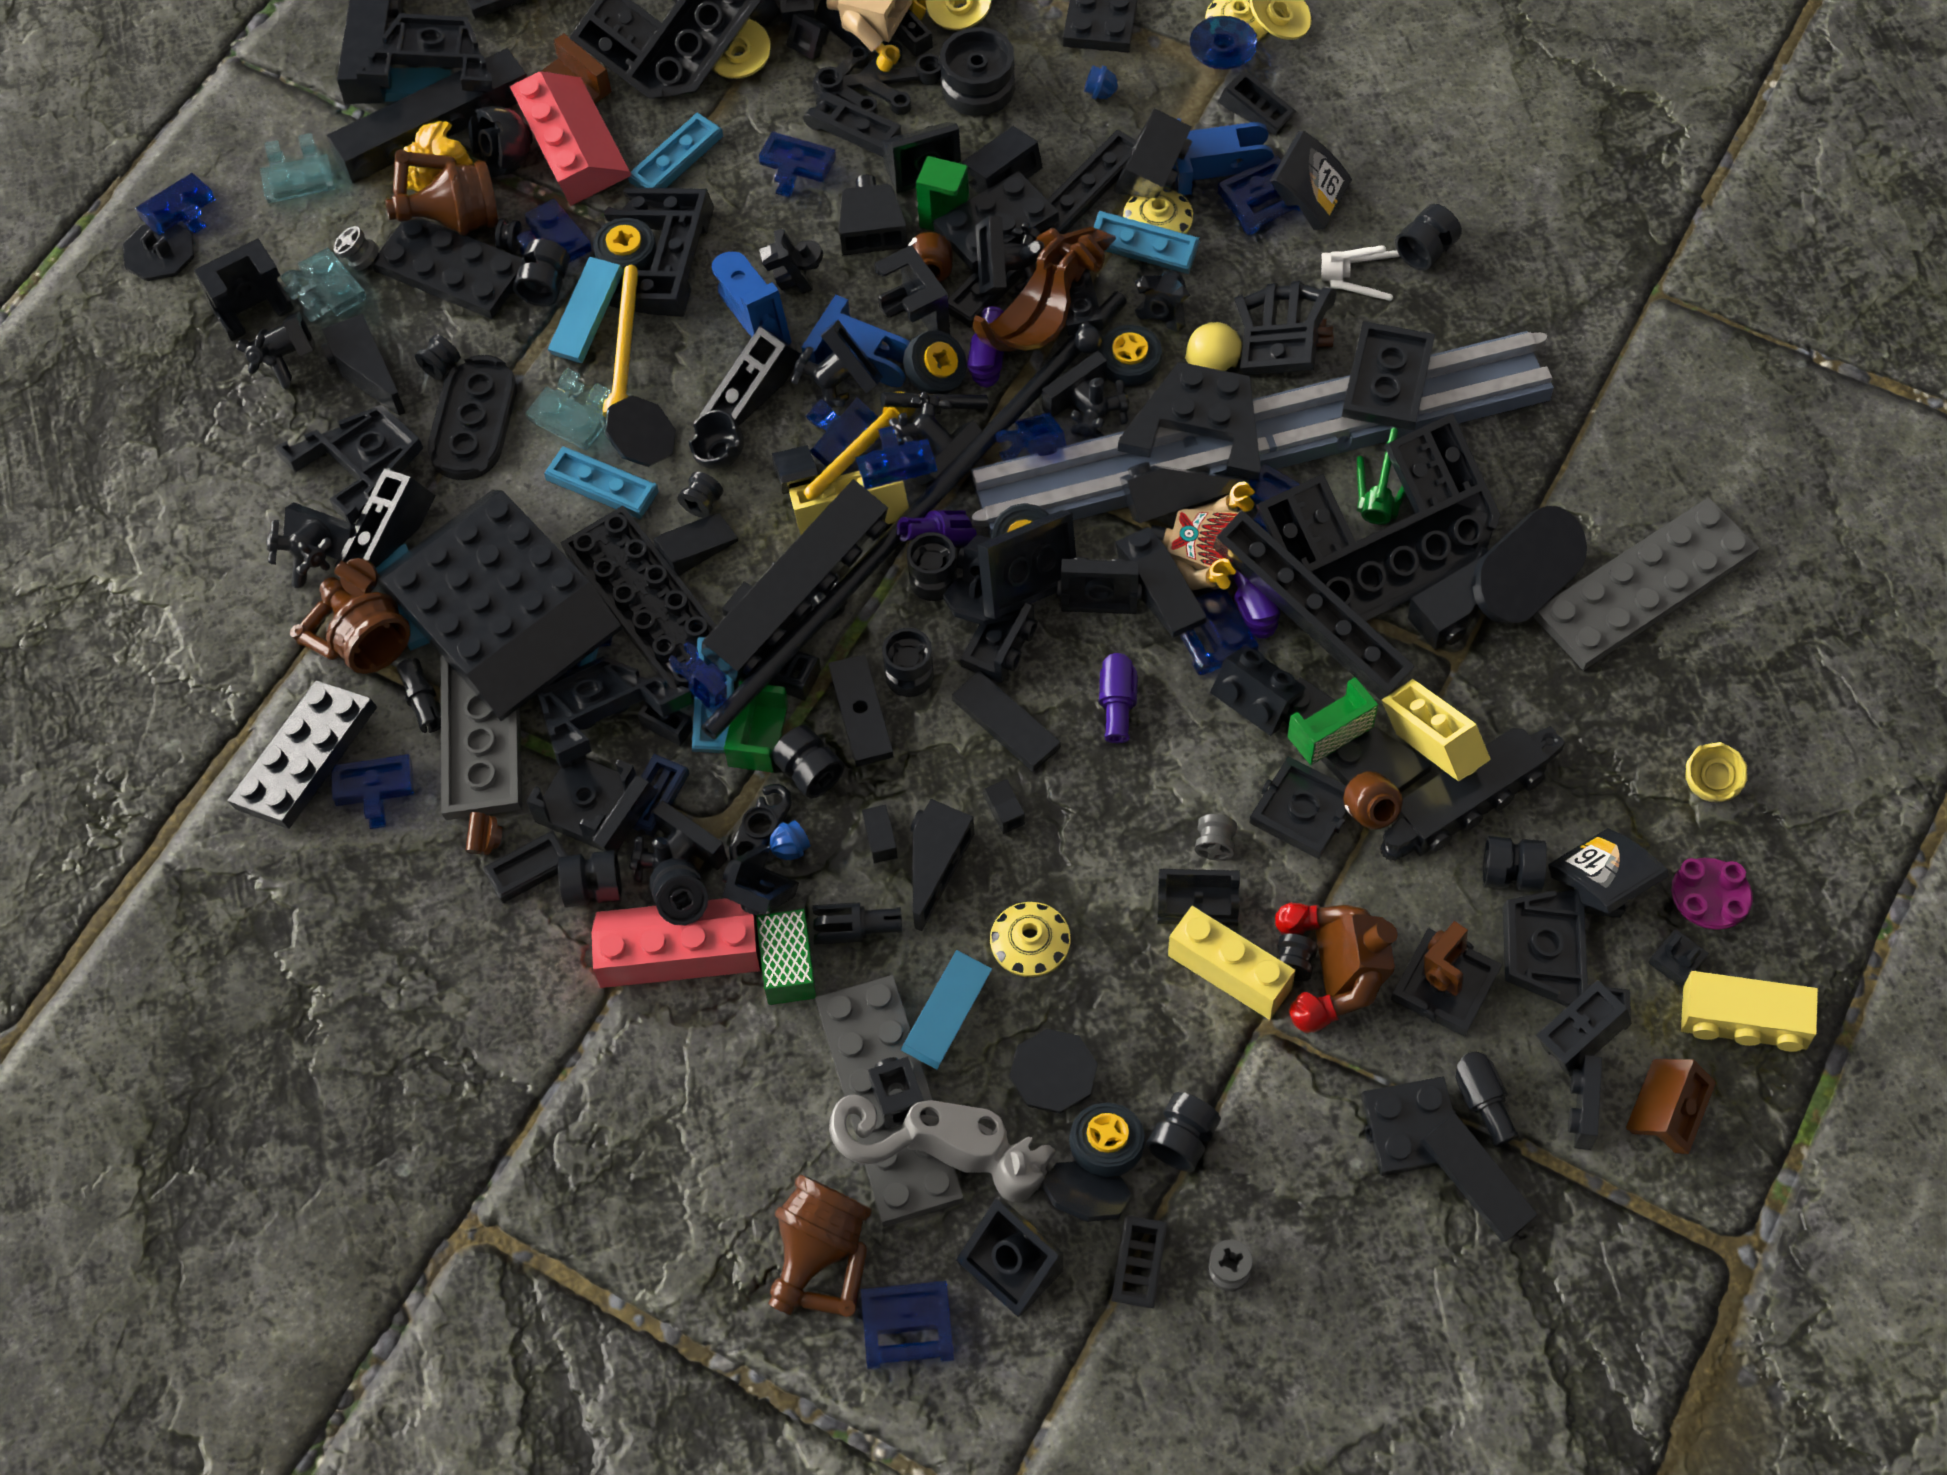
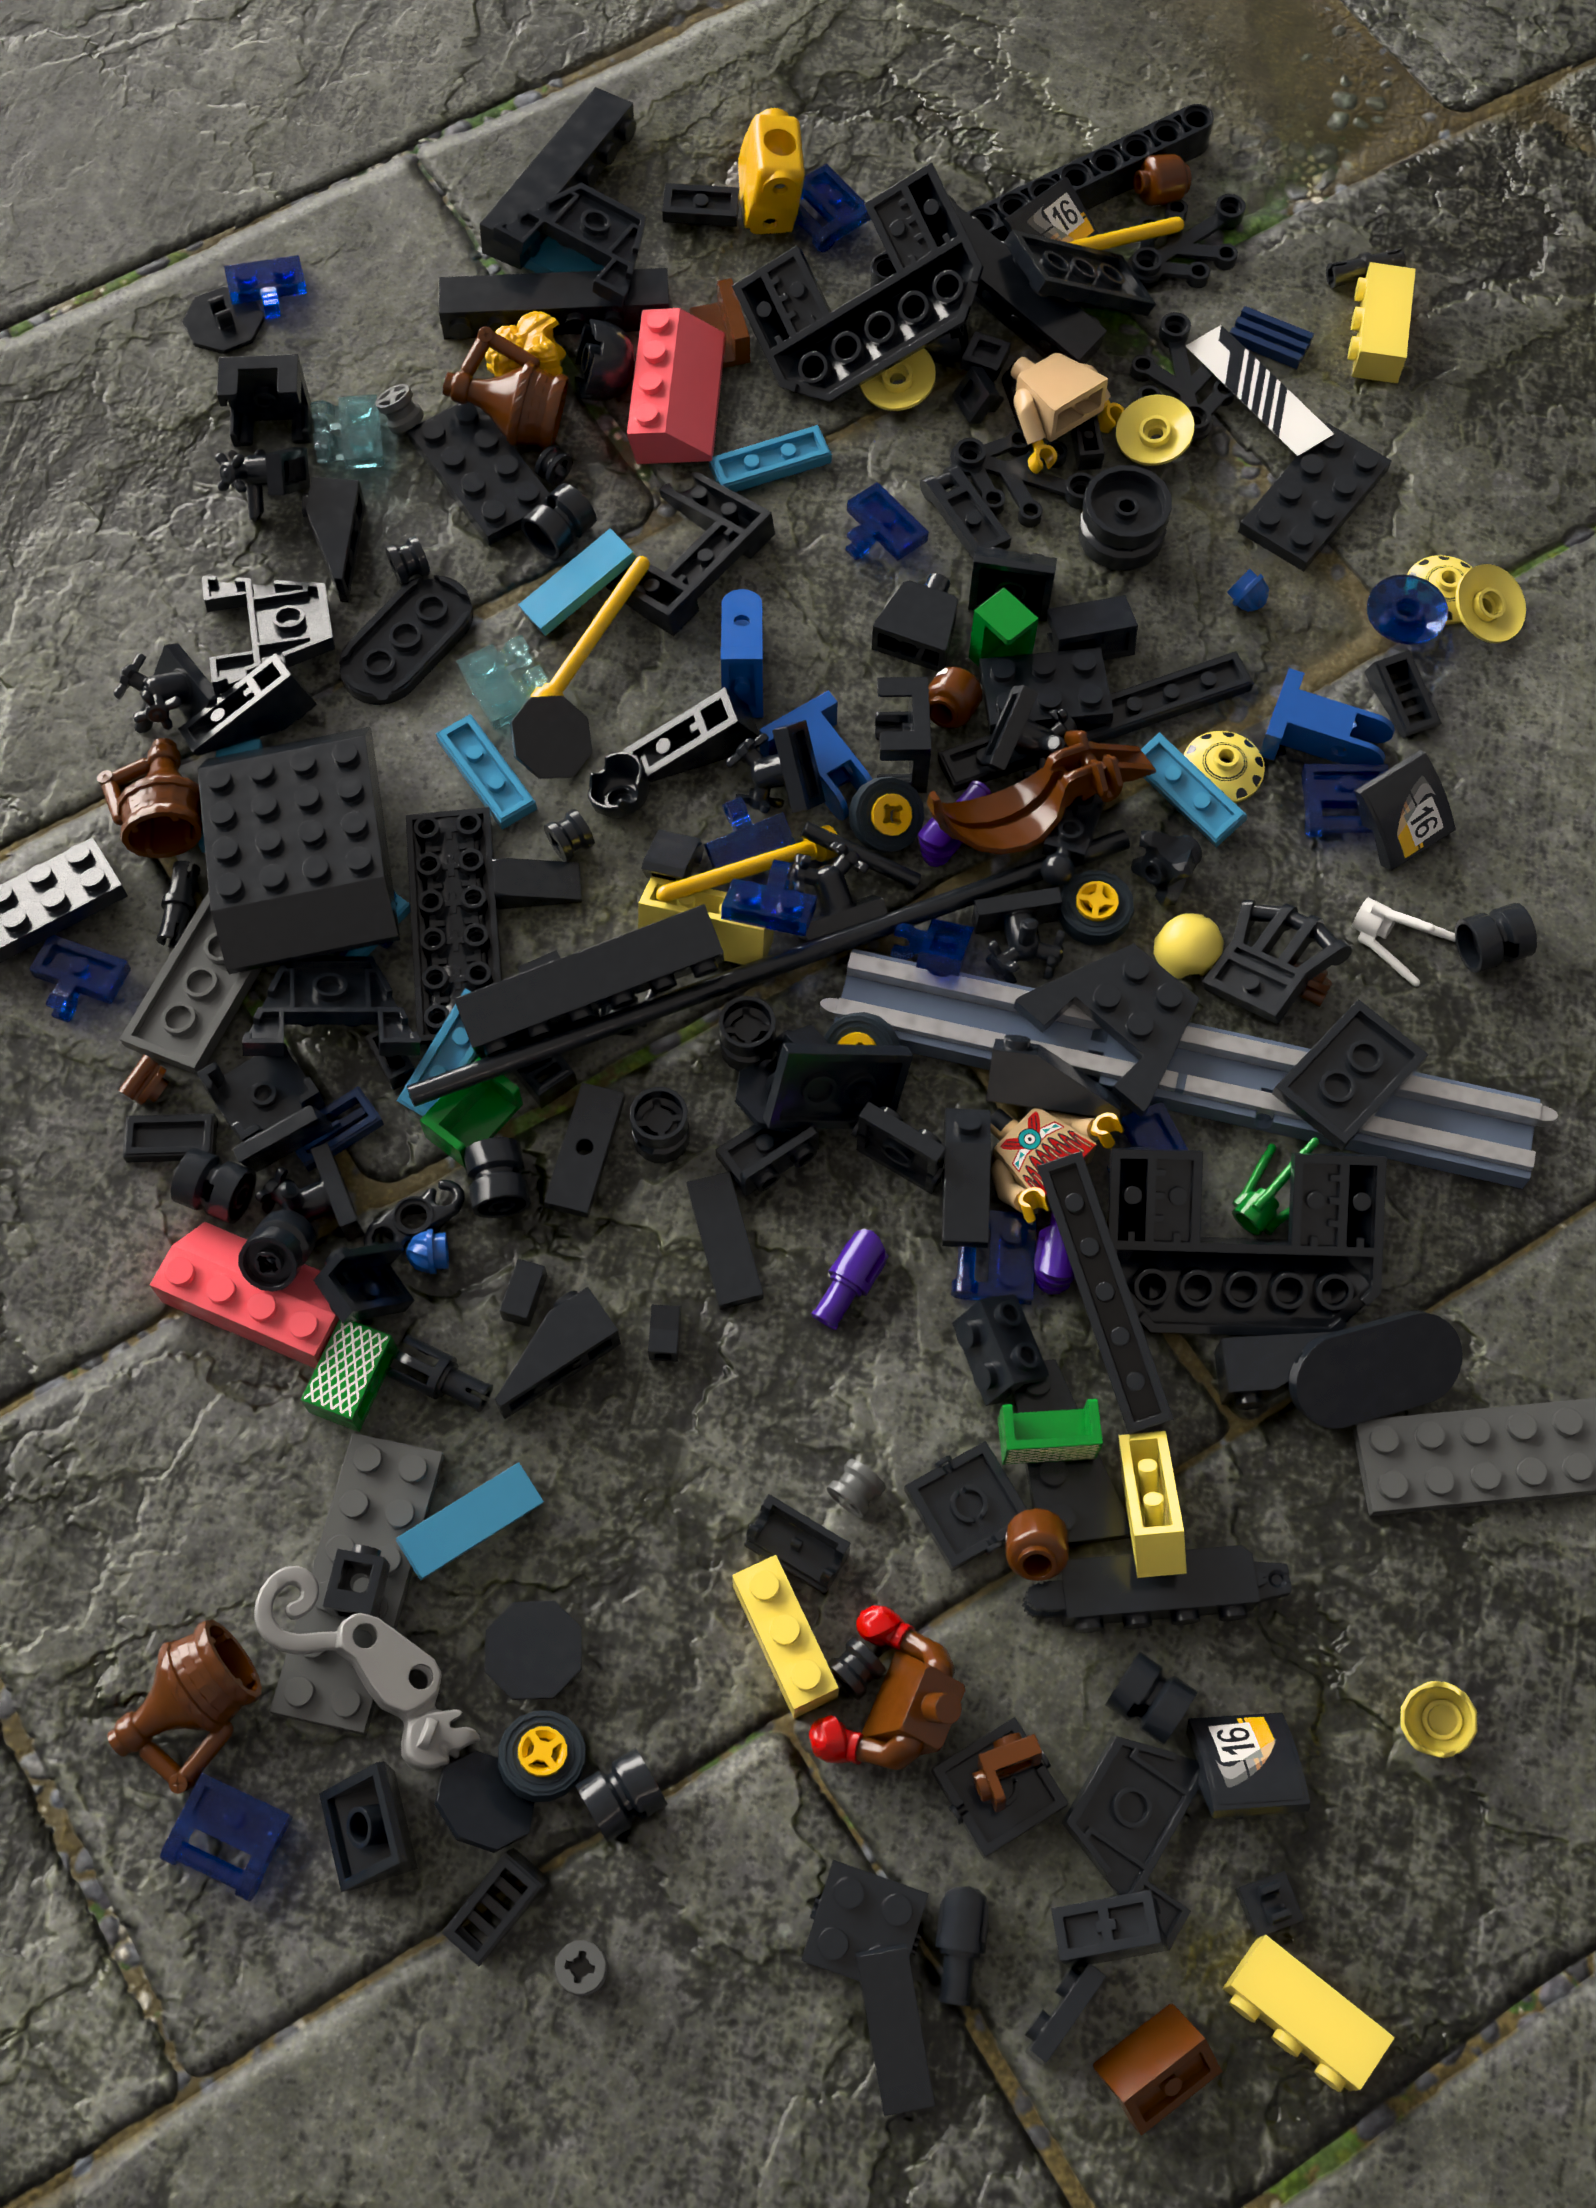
camera: 25 degrees right, 5 degrees up
(298, 177) = (395, 308): clear light blue plate -> none
(357, 576) = (184, 751): reddish brown plate -> none
(554, 224) = (601, 484): clear blue plate -> none
(614, 236) = (673, 534): black wheel -> none
(704, 681) = (434, 1046): clear blue plate -> none
(791, 260) = (807, 630): black hips -> none
(951, 523) = (789, 999): dark purple arm -> none
(1030, 955) = (611, 1511): light yellow dish -> none
(1154, 155) = (1248, 701): black slope -> none
(1712, 892) = (1351, 1852): magenta dish -> none

